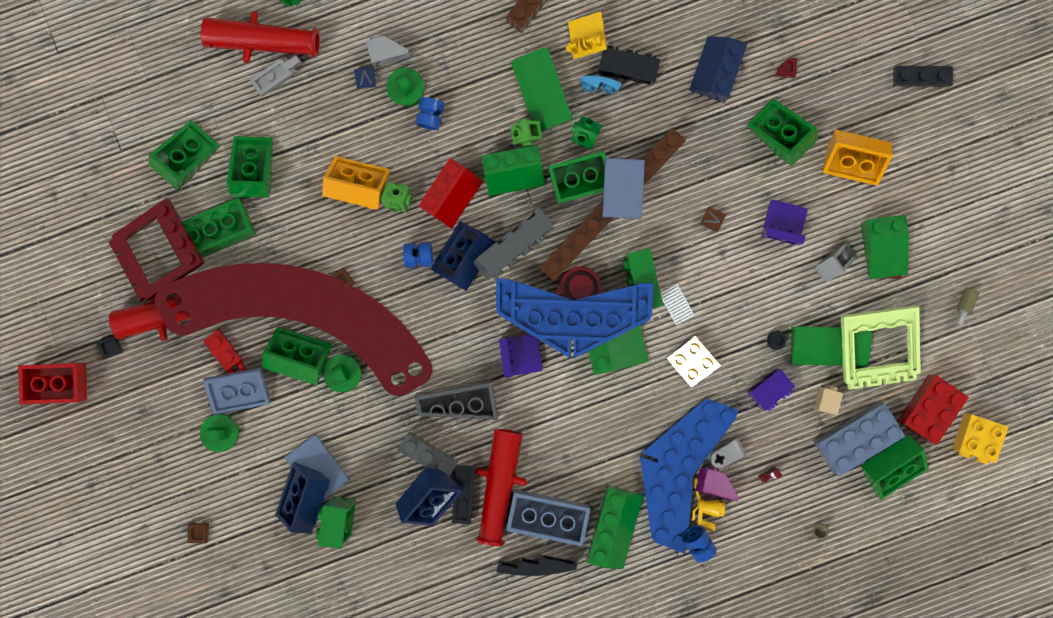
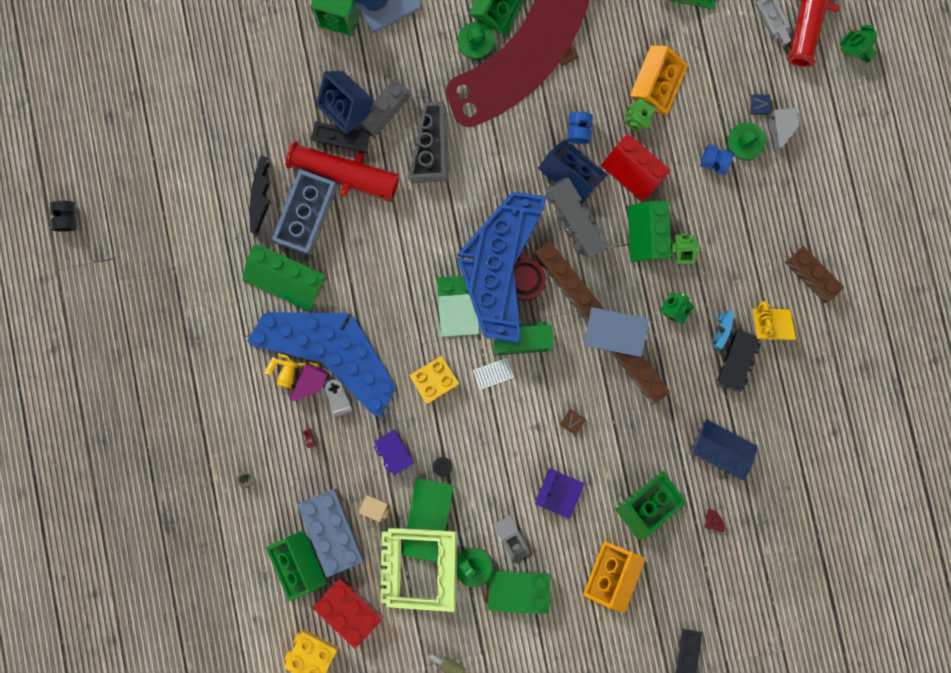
camera: 105 degrees right, 5 degrees down
(520, 355) = (466, 210): dark purple bracket -> none
(542, 89) = (725, 272): green slope -> none
(578, 177) = (634, 291): green slope -> none
(699, 543) = (254, 355): blue wheel -> none
(869, 293) = (474, 567): none -> green tile

